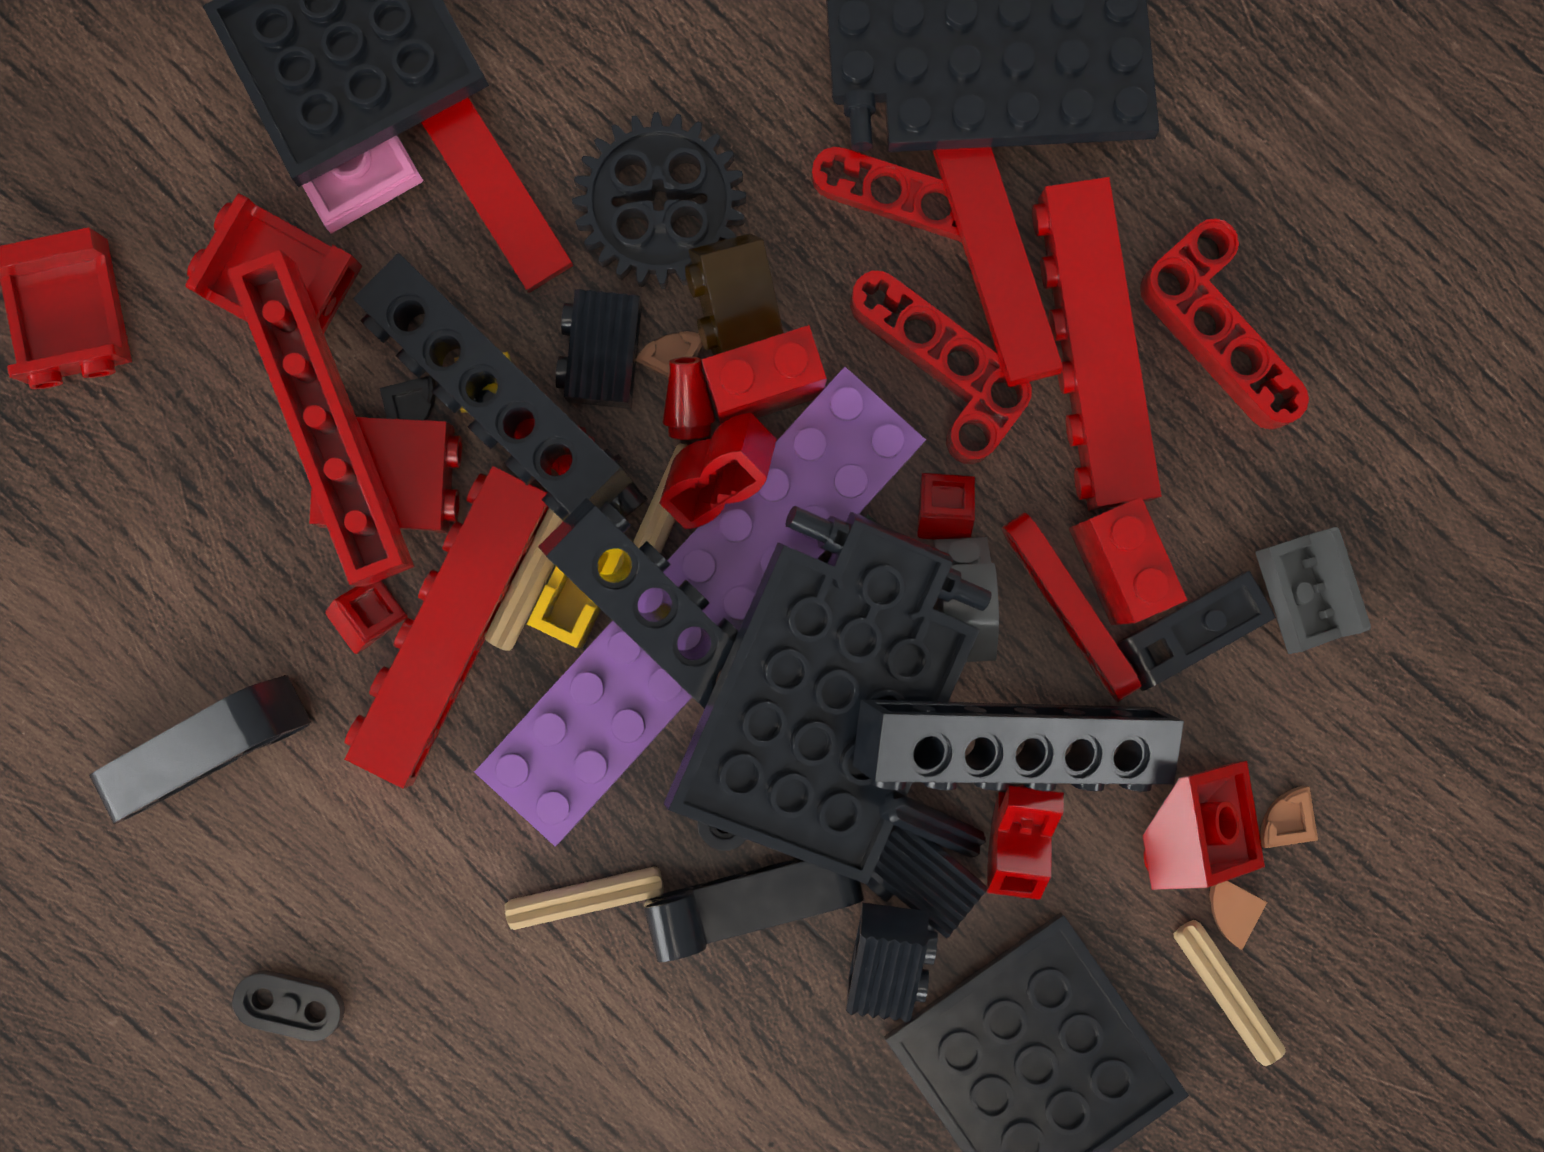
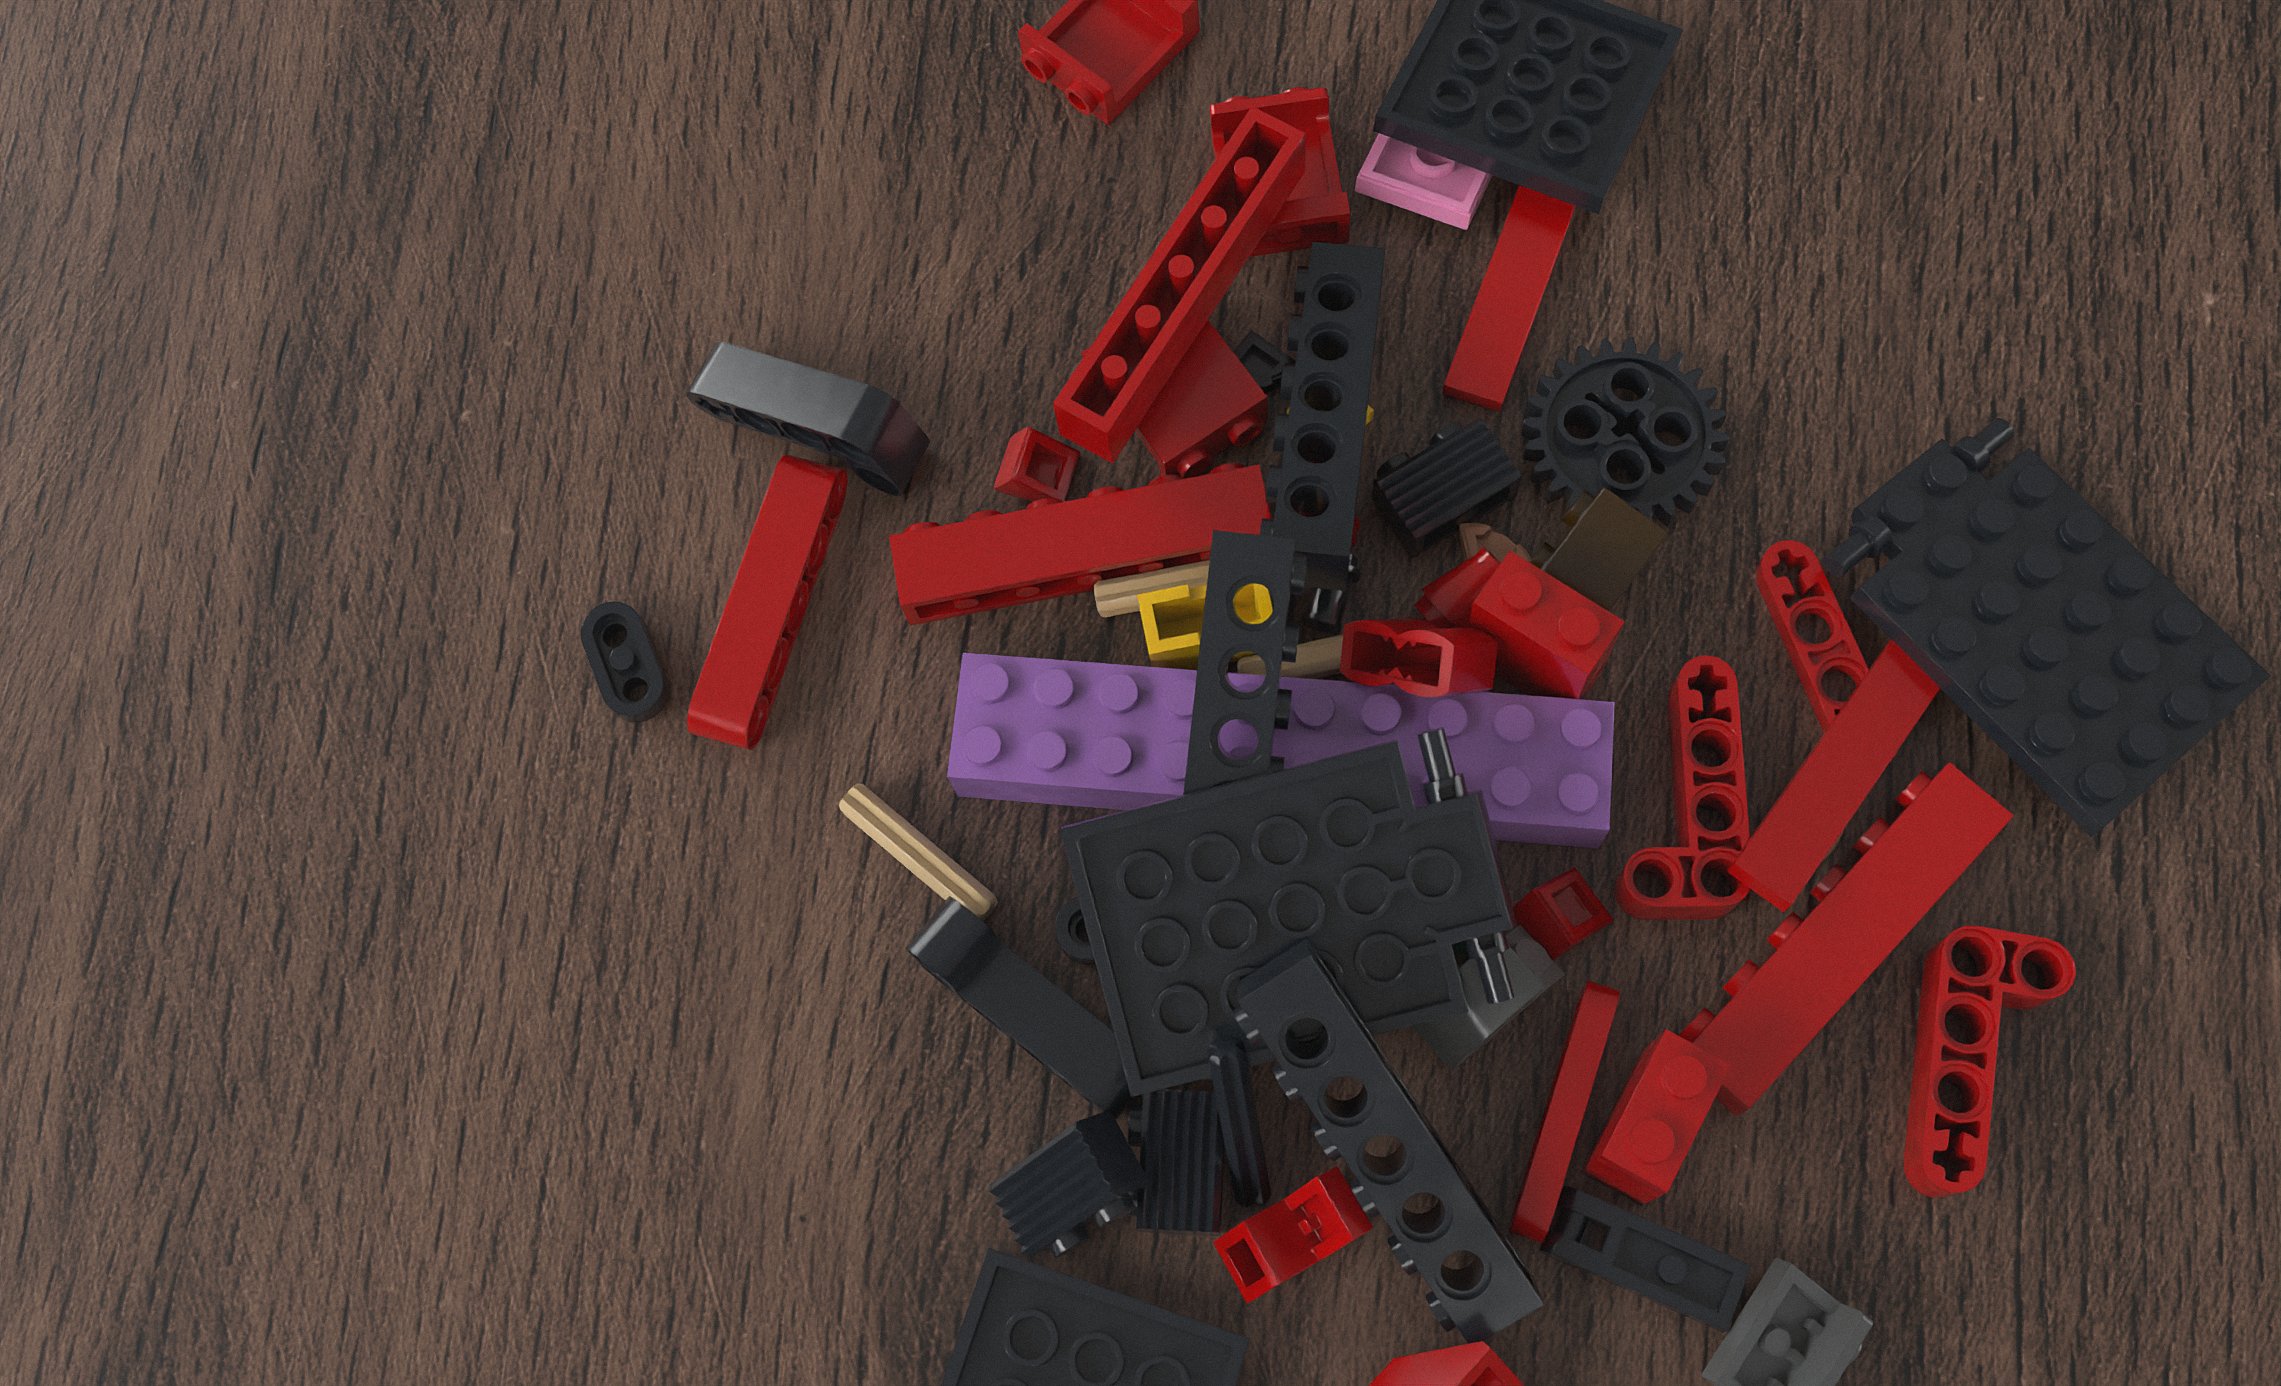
camera: 70 degrees right, 15 degrees down
(321, 873) = (767, 602): none -> red beam

